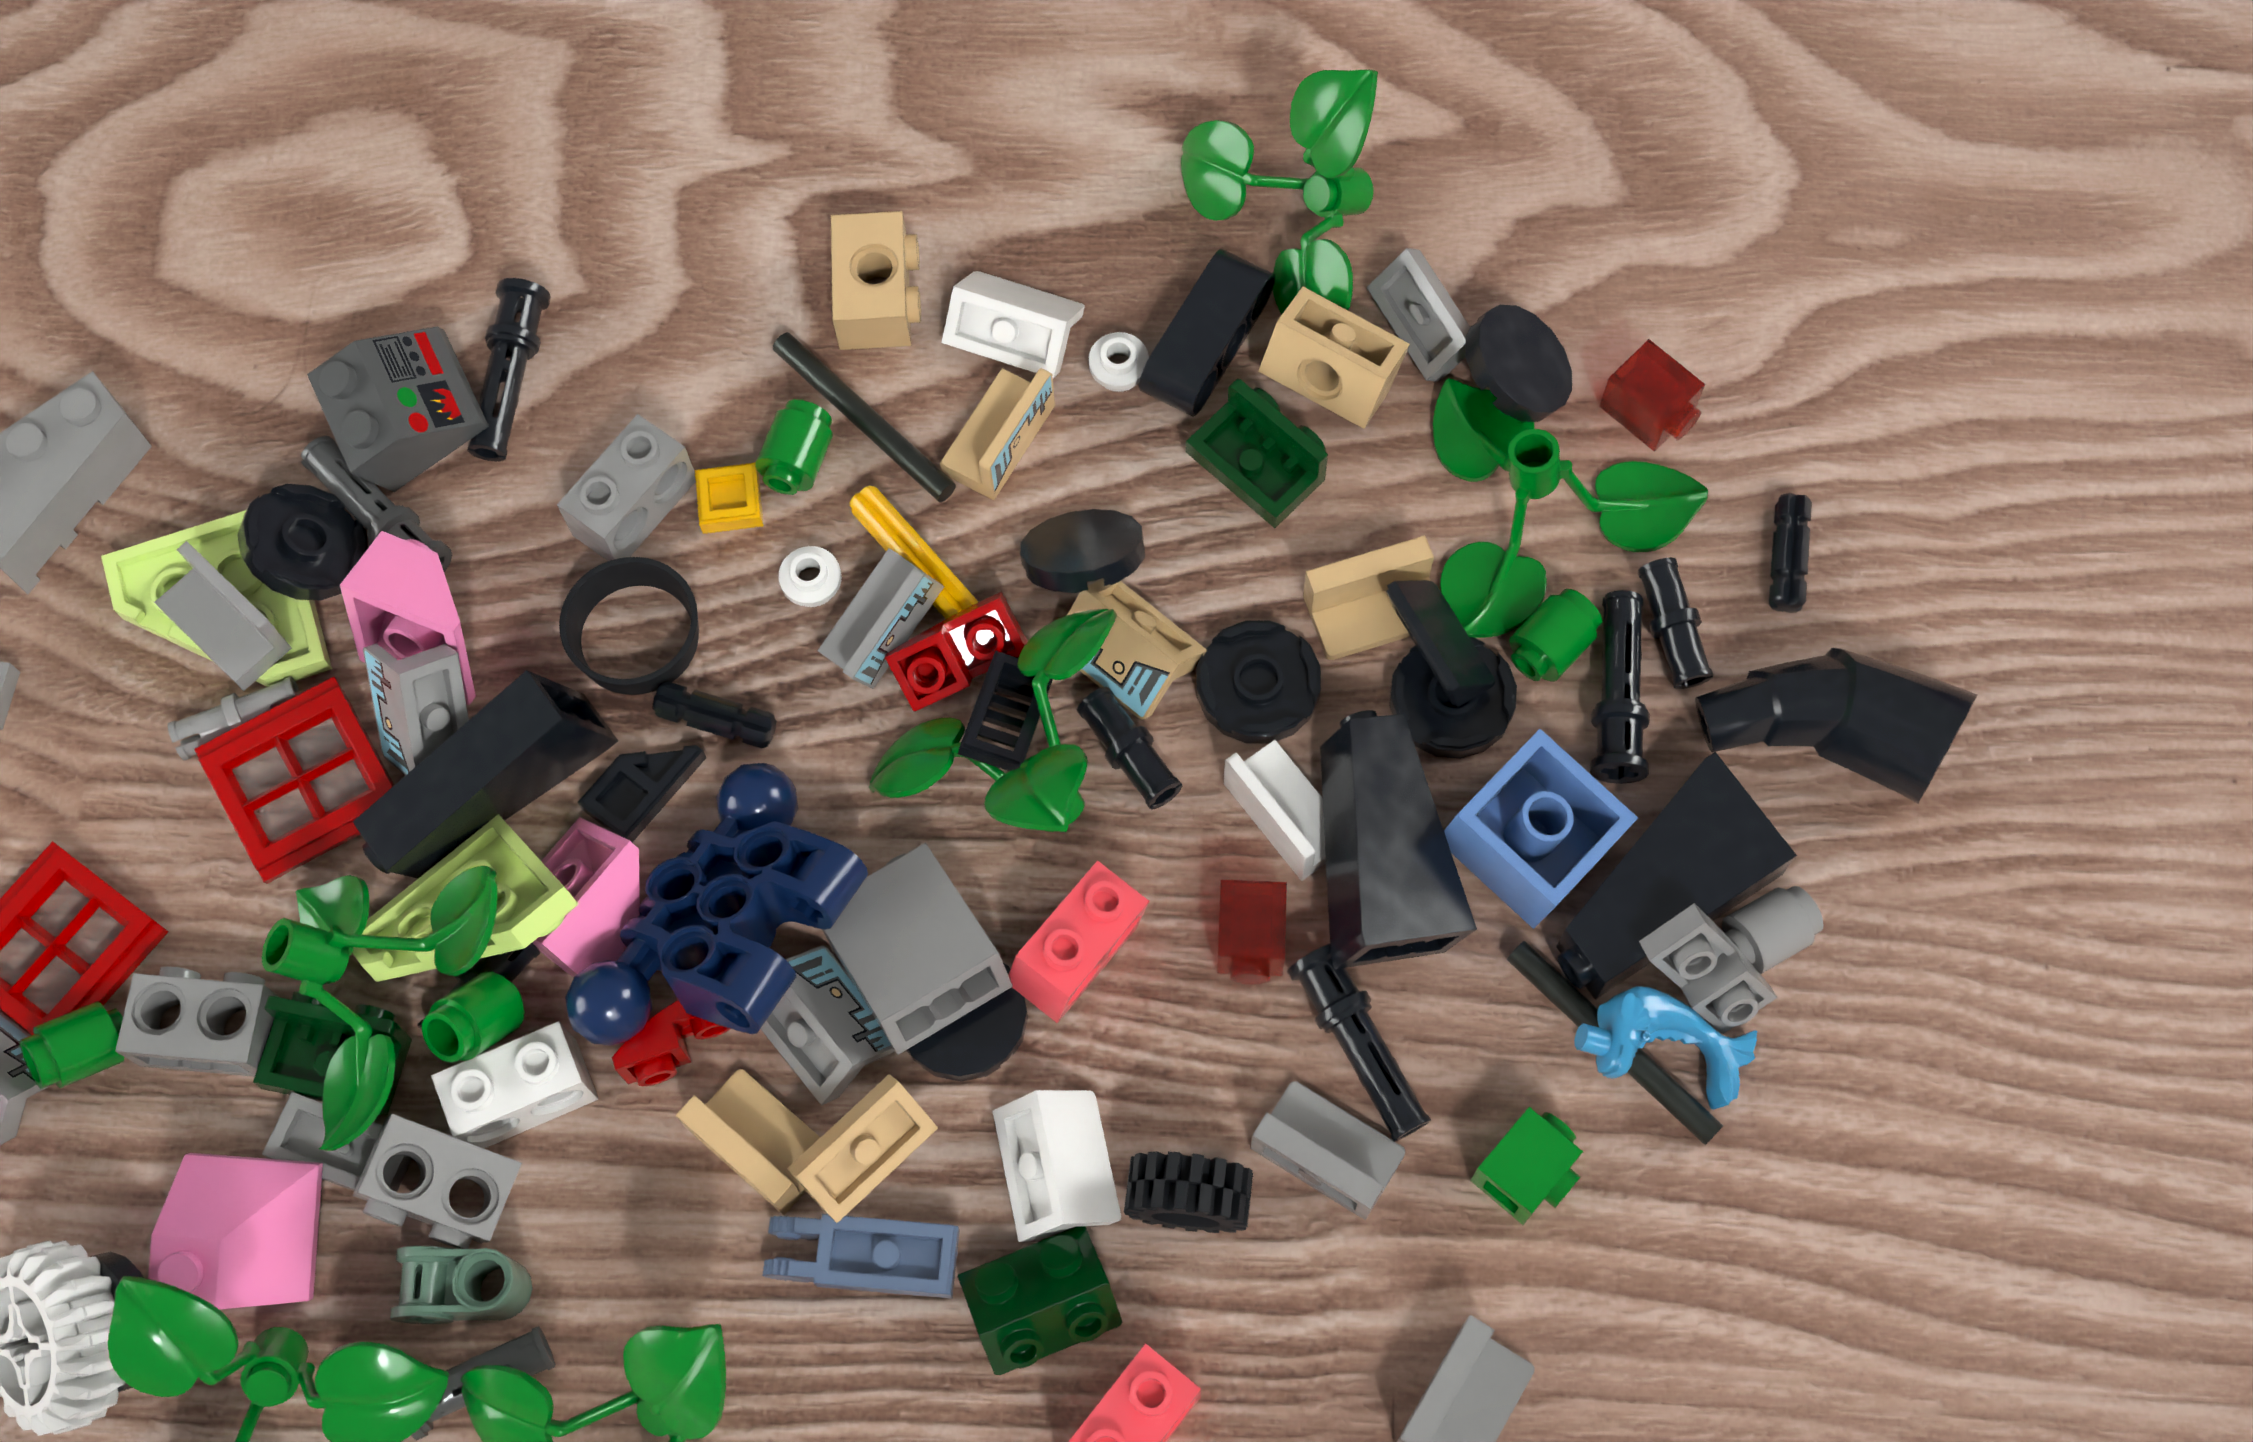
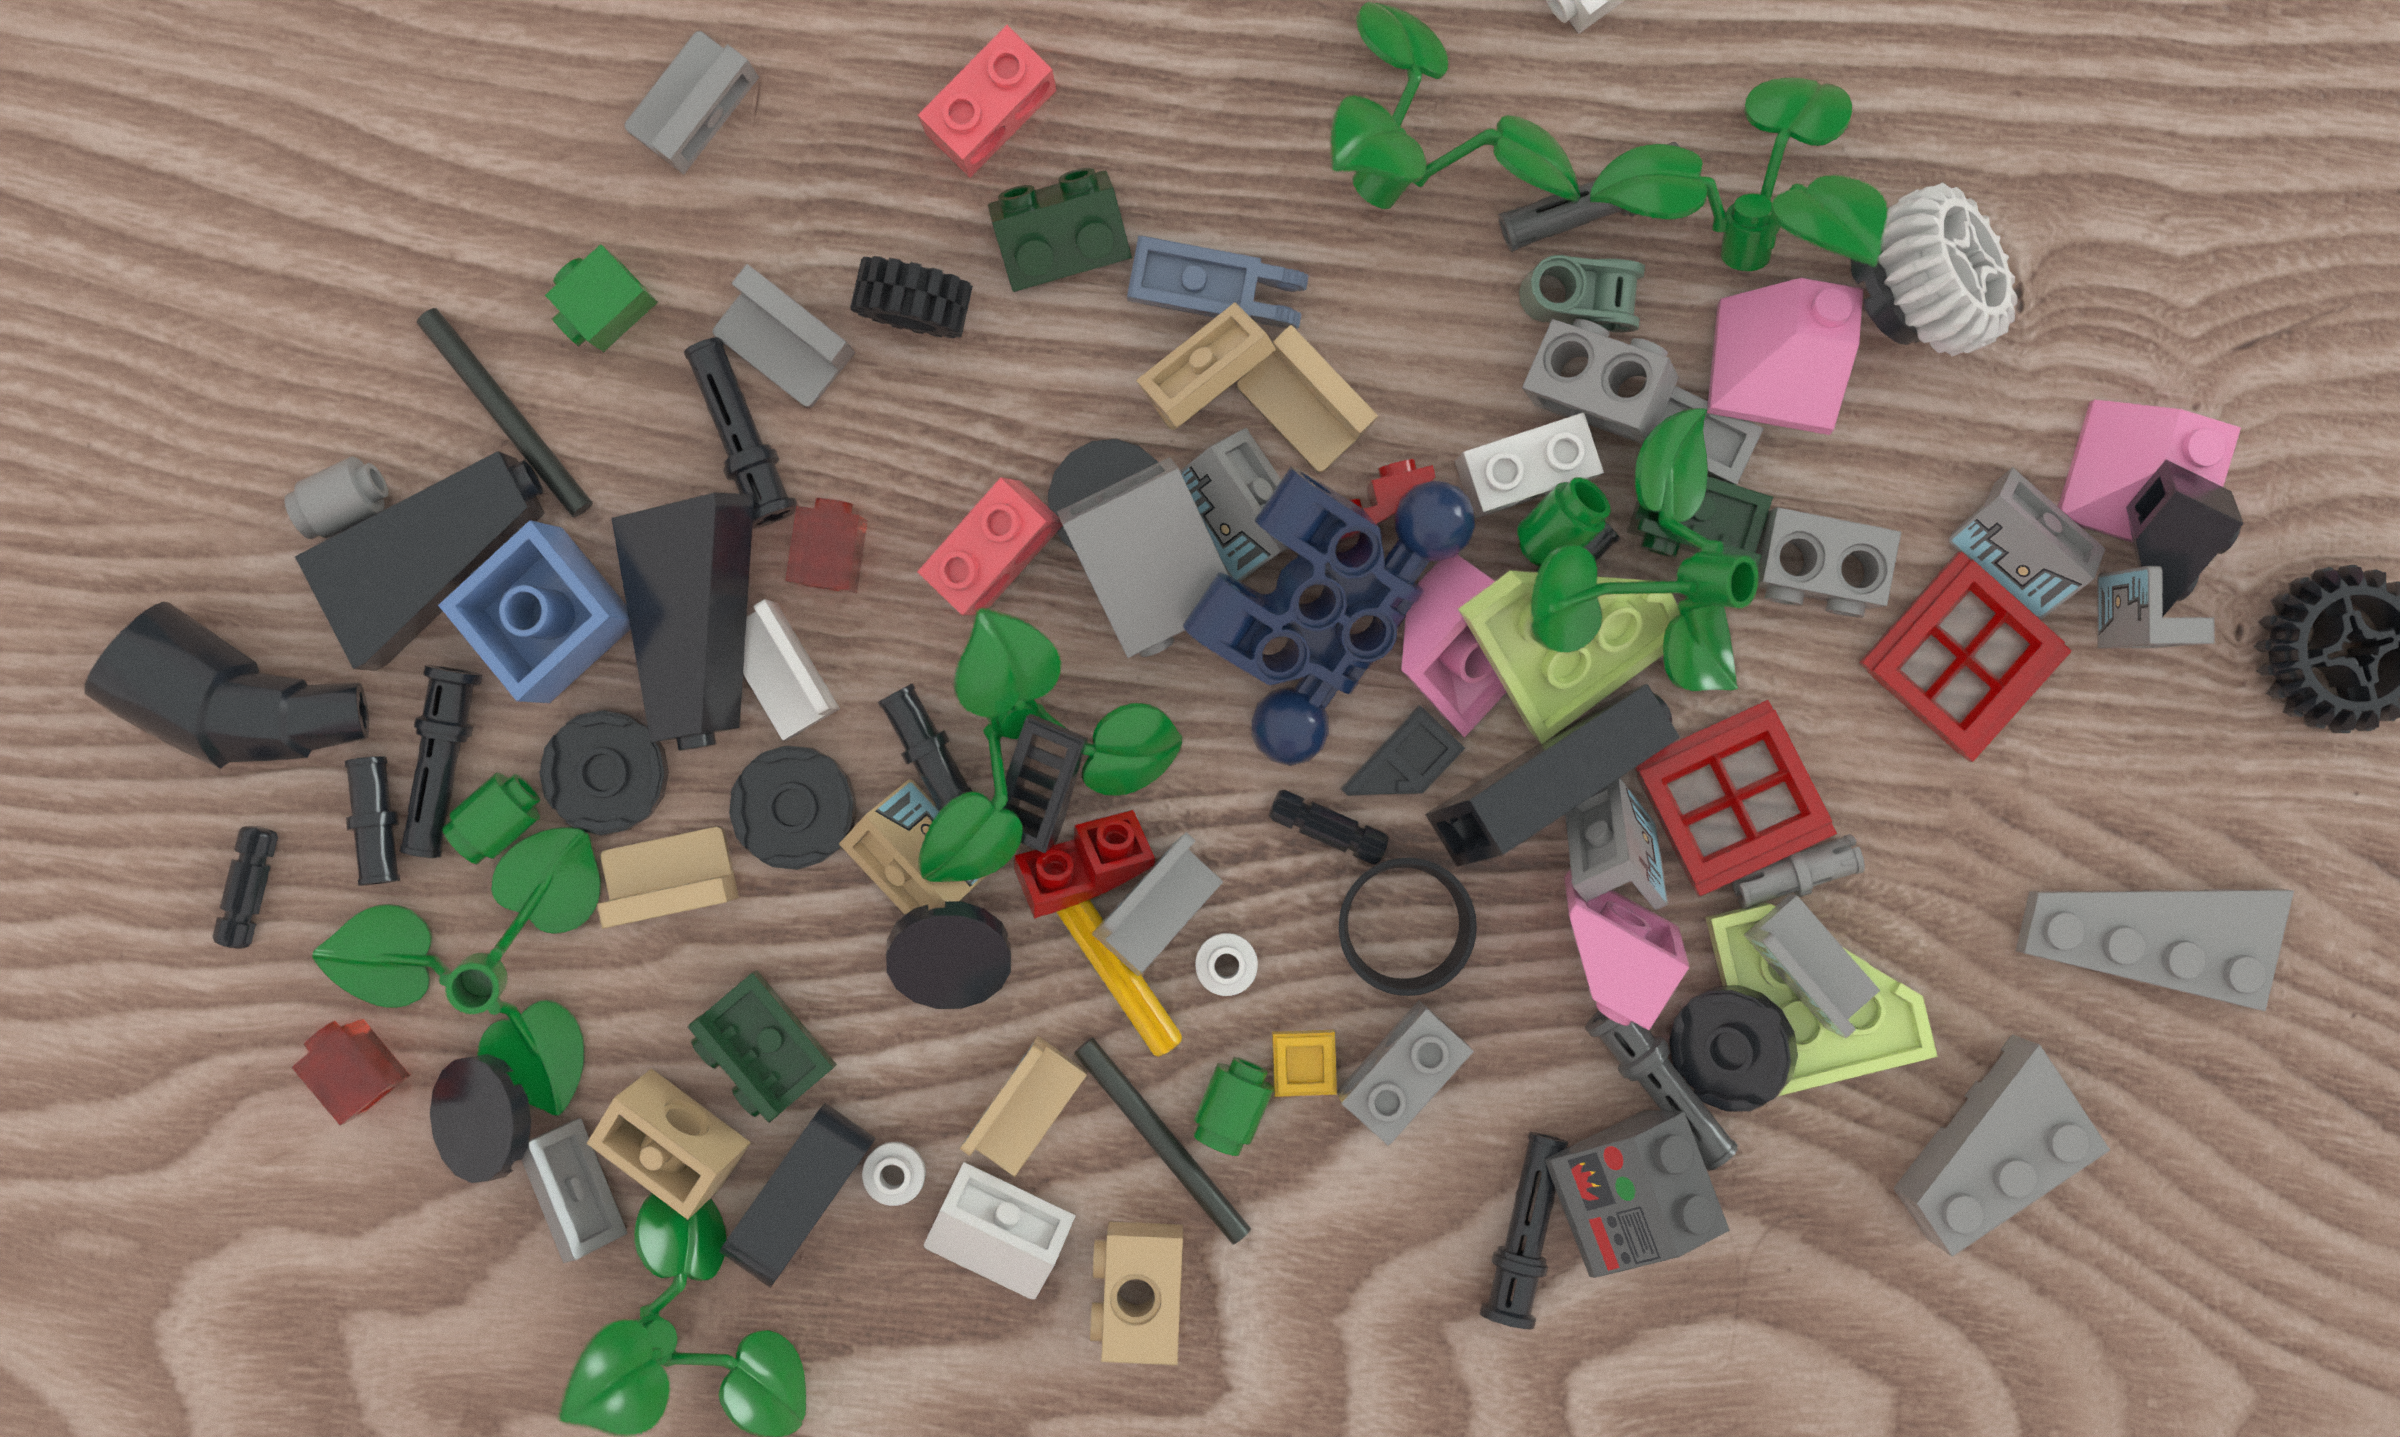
camera: 175 degrees left, 20 degrees up
(73, 1046) = (1941, 548): green brick -> none
(1056, 1163) = (1033, 348): white panel -> none
(1440, 639) = (602, 818): black slope -> none
(1647, 1014) = (476, 419): dark azure animal -> none
(1708, 969) = (398, 454): light grey slope -> none

